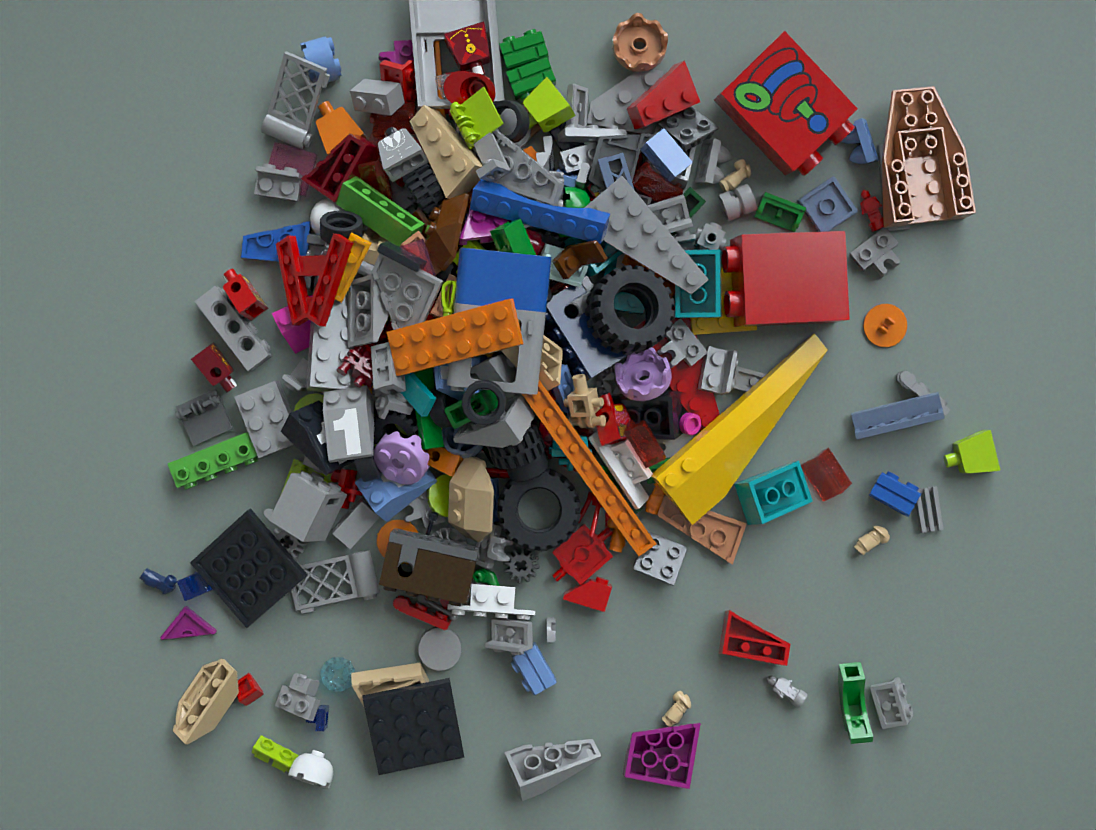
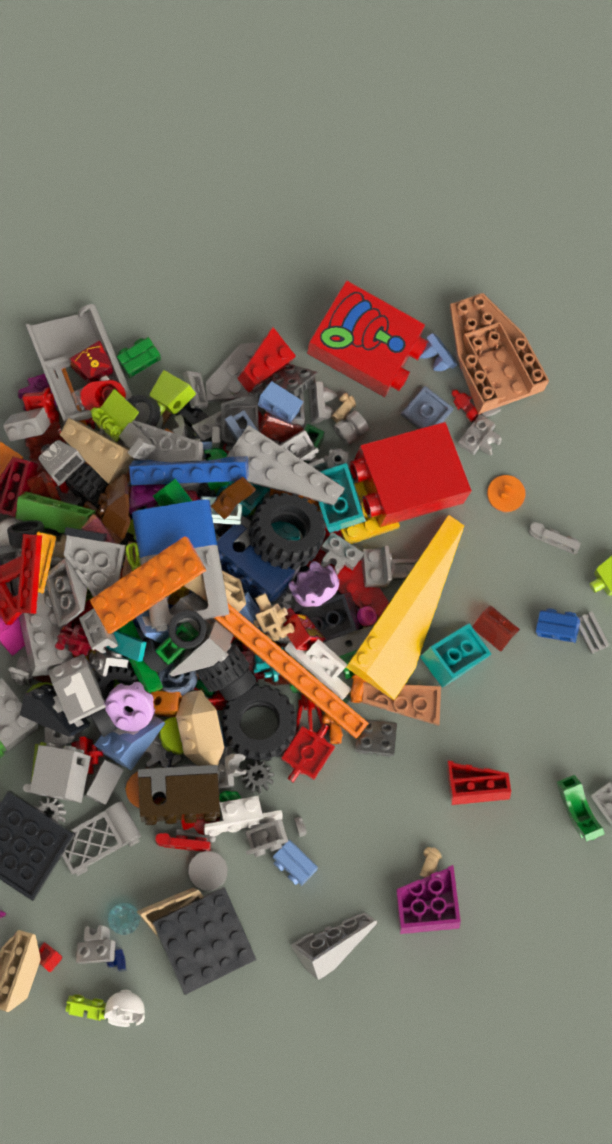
camera: 25 degrees left, 15 degrees down
(529, 76) = (147, 376): green brick -> none
(589, 134) = (208, 407): light grey tile -> none
(590, 594) = (325, 784): red slope -> none
(639, 30) = (232, 315): nougat plate -> none
(644, 443) = (332, 638): clear red panel -> none
(779, 212) = (388, 425): green hinge -> none
(783, 688) = (517, 818): light grey piece -> none
(871, 540) = (548, 674): tan arm -> none
(897, 415) = (538, 559): sand blue fence -> none

